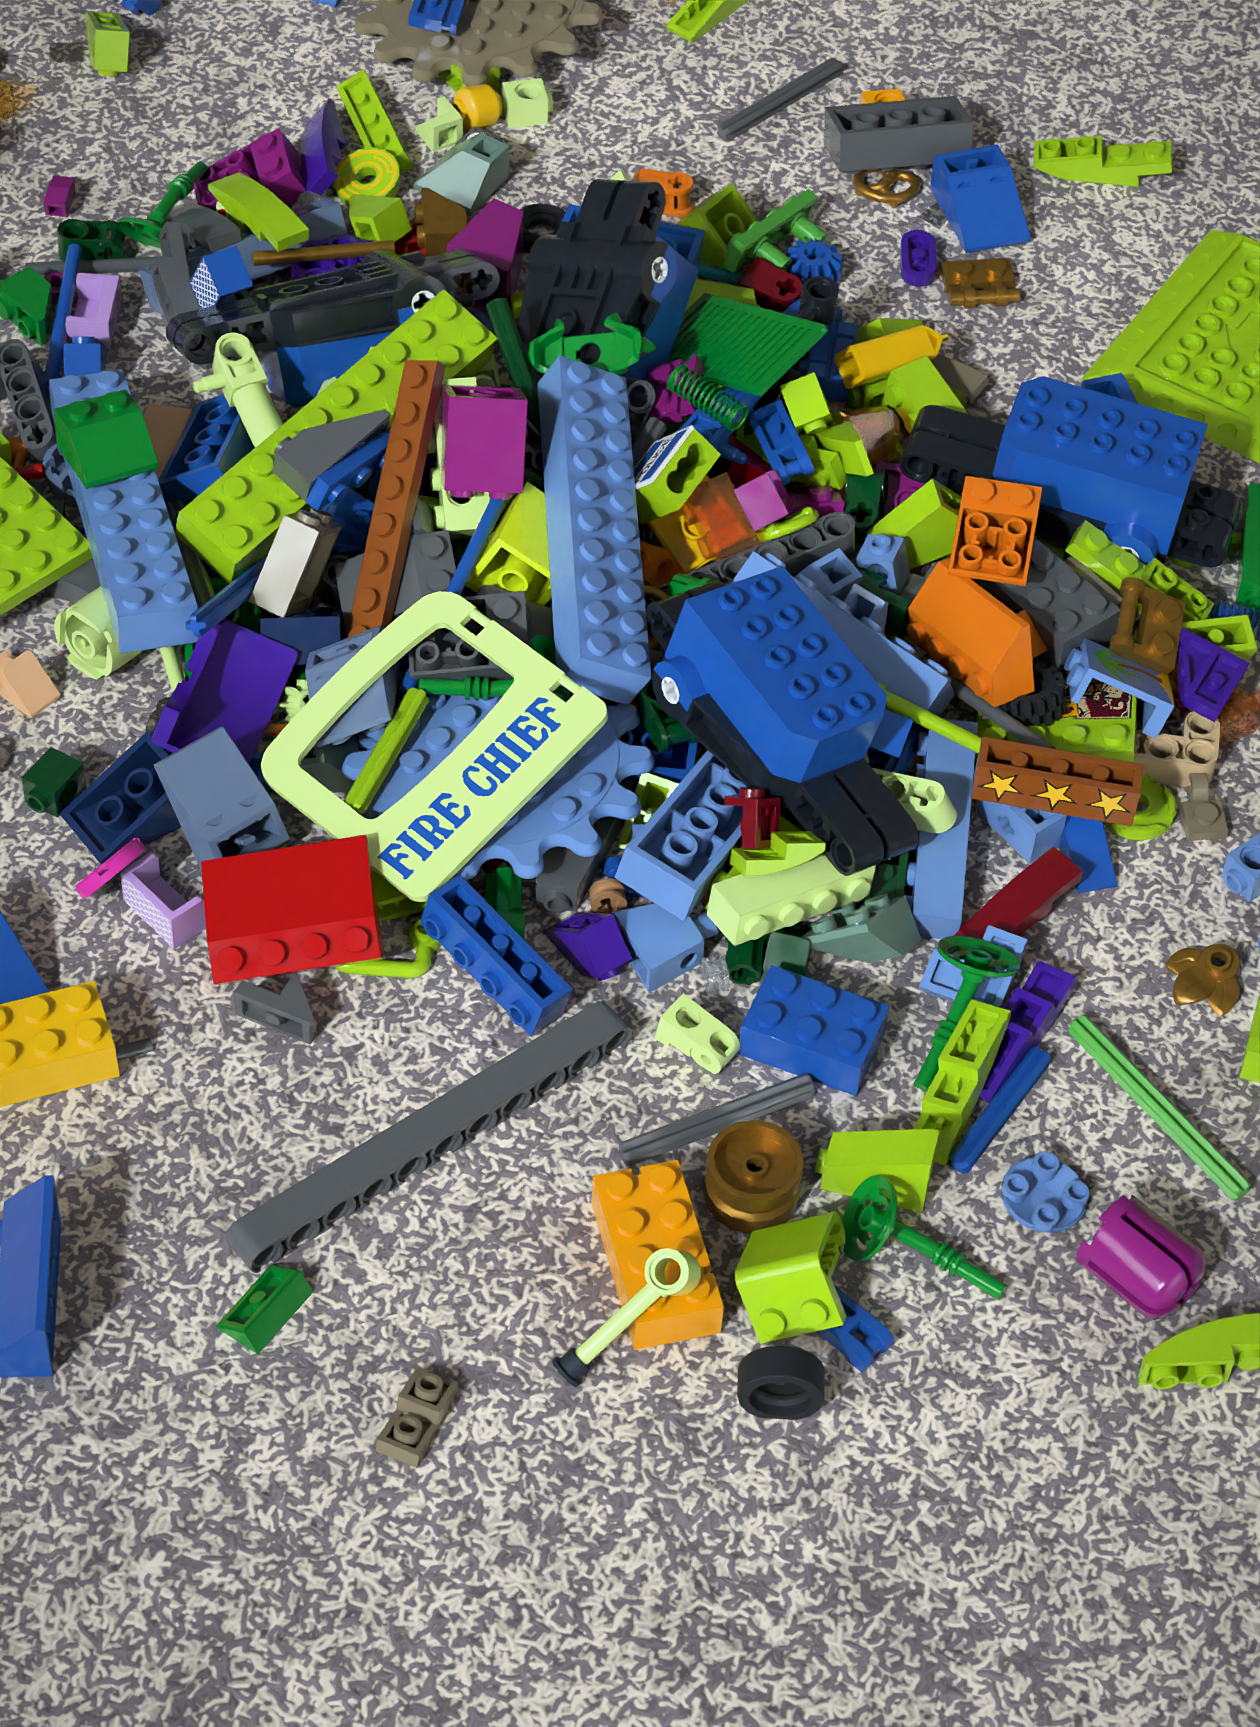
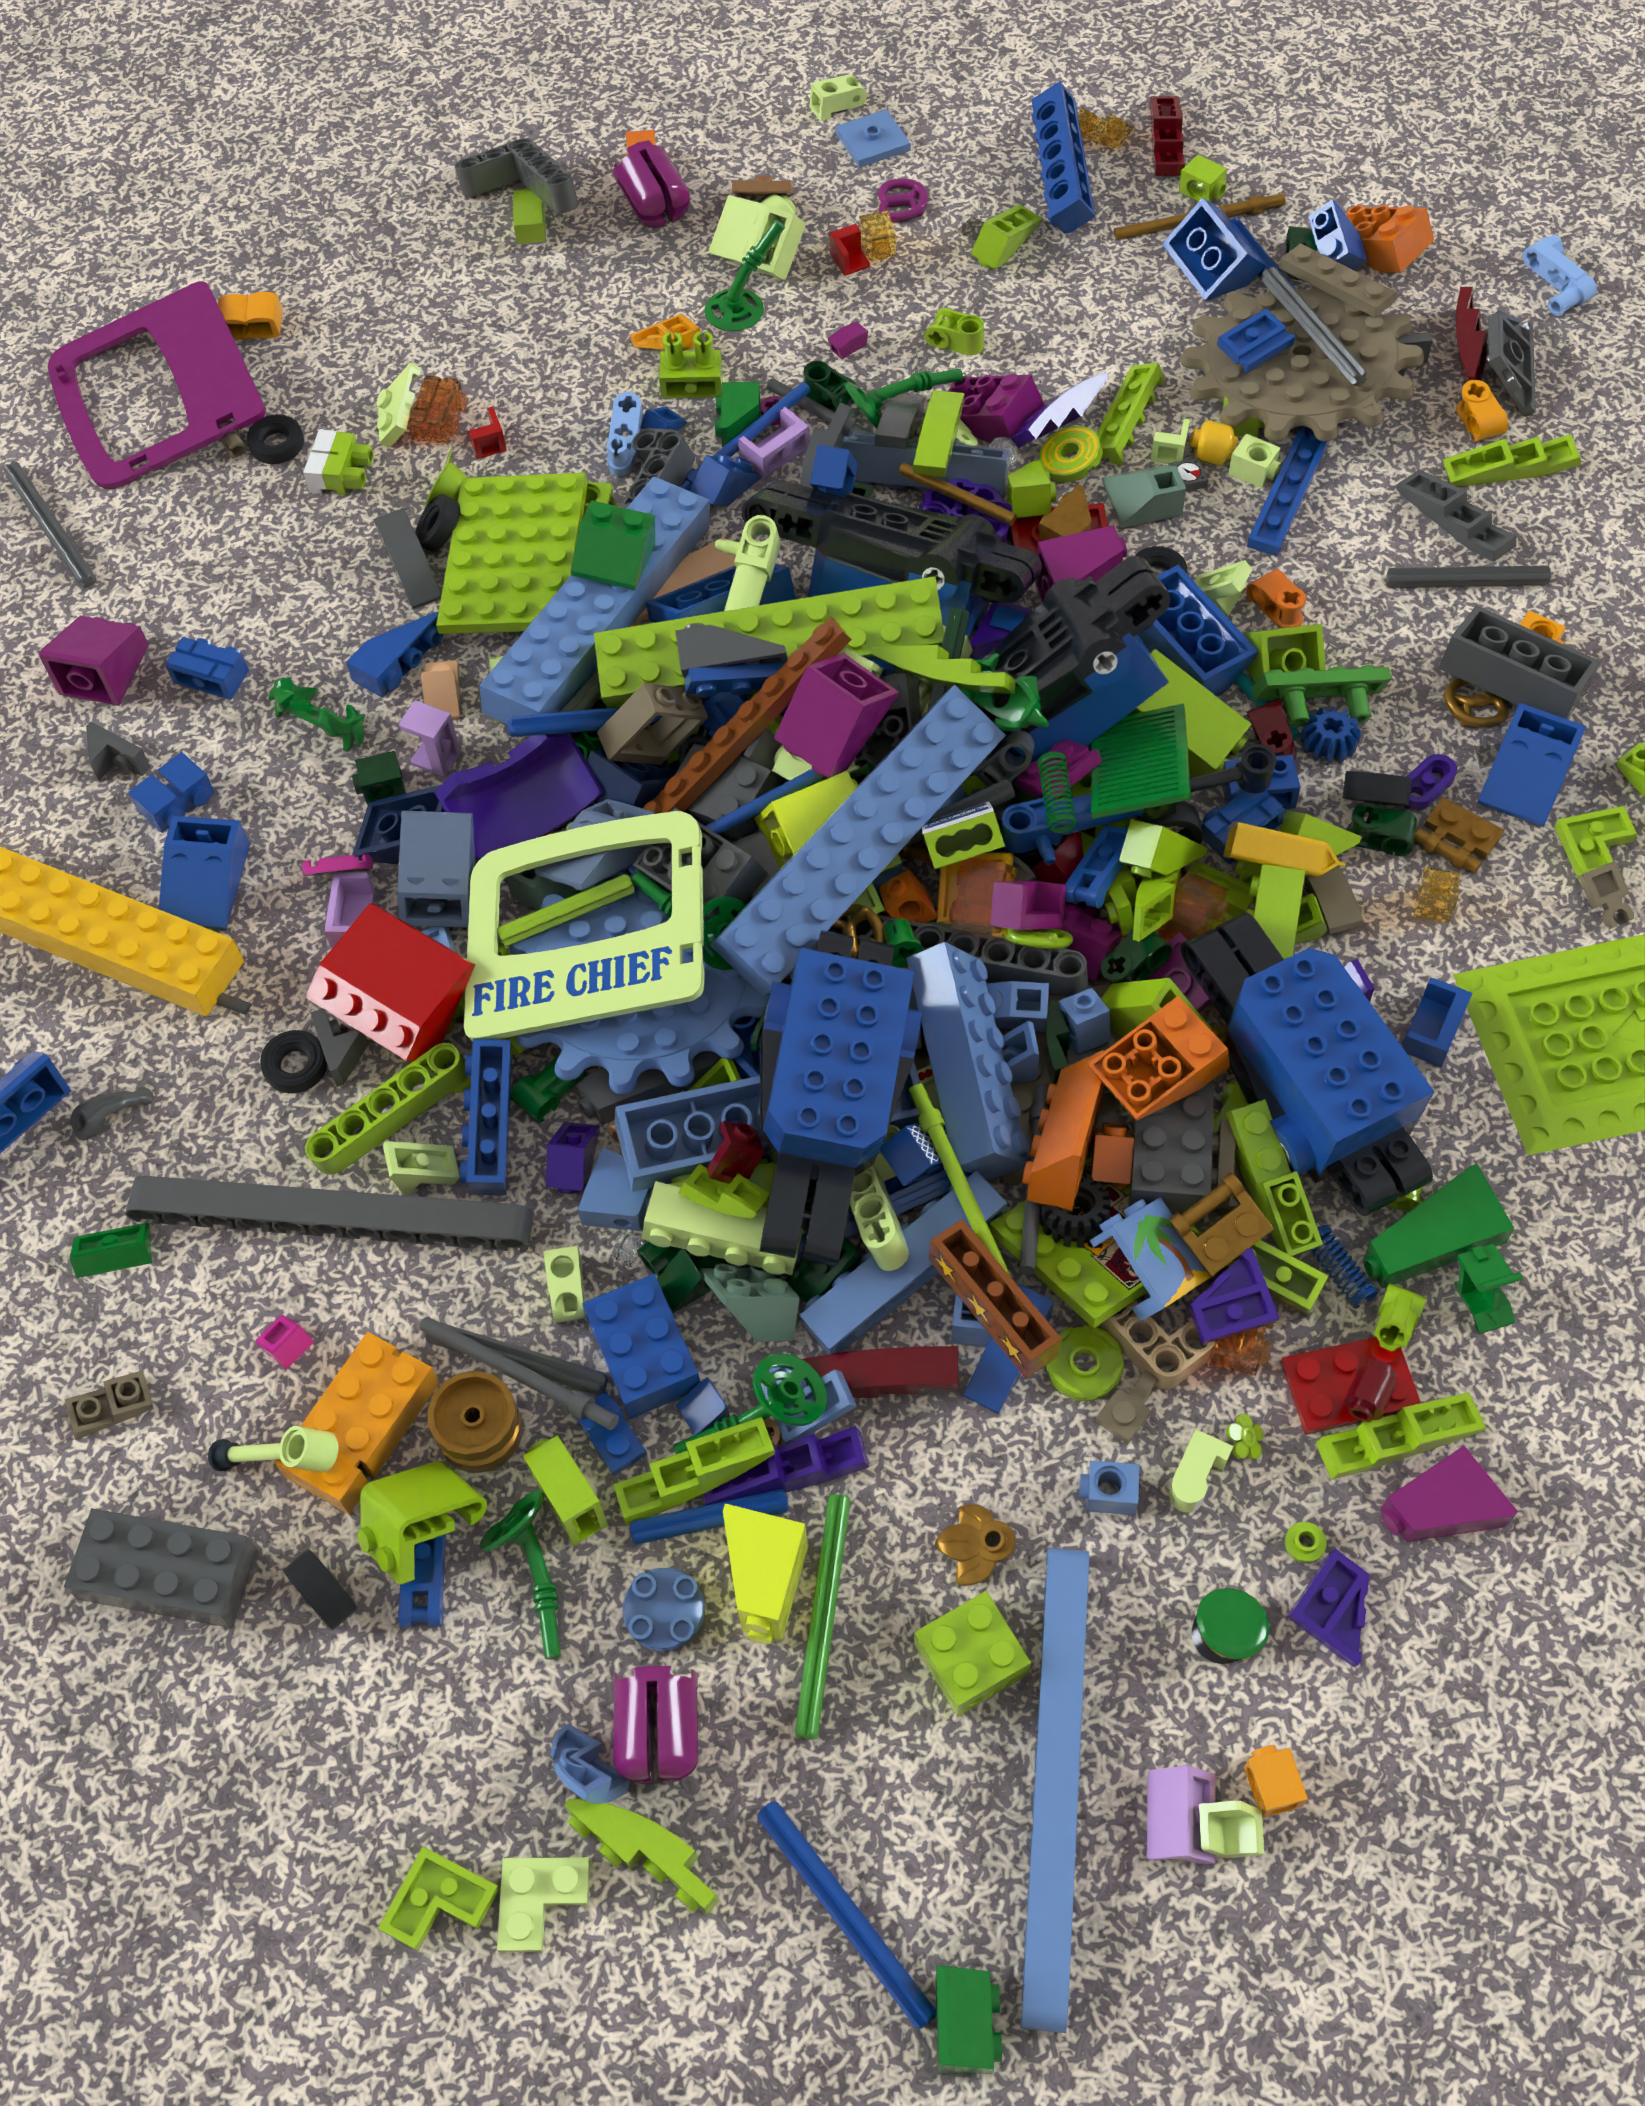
camera: 50 degrees right, 10 degrees up
(74, 715) = (438, 736): none -> lavender panel
(120, 1217) = (90, 1116): none -> dark grey piece
(156, 138) = (959, 332): none -> lime piece
(247, 1028) = (282, 1045): none -> black tyre
(386, 1034) = (379, 1125): none -> lime beam
(467, 1040) = (420, 1163): none -> yellowish green slope
(508, 1254) = (284, 1341): none -> dark pink slope
(514, 358) = (934, 665): none -> lime slope
(576, 112) = (1287, 492): none -> blue plate
(626, 1482) = (161, 1568): none -> dark grey brick
(712, 58) = (1451, 511): none -> dark grey slope
(830, 1092) = (577, 1403): none -> dark grey bar
(844, 1109) = (616, 1447): none -> blue slope
(896, 278) = (1377, 788): none -> black tyre
(906, 1039) = (702, 1407): none -> blue slope
(930, 304) = (1385, 829): none -> dark green piece
(1016, 327) = (1436, 895): none -> clear yellow brick
(1072, 230) = (1589, 835): none -> lime plate
(1093, 1099) = (765, 1569): none -> neon yellow slope
(1111, 1513) = (431, 1887): none -> lime plate
(1124, 254) = (1605, 888): none -> dark tan plate
(1134, 1331) = (581, 1770): none -> medium blue brick
(1177, 1453) = (531, 1886): none -> yellowish green plate

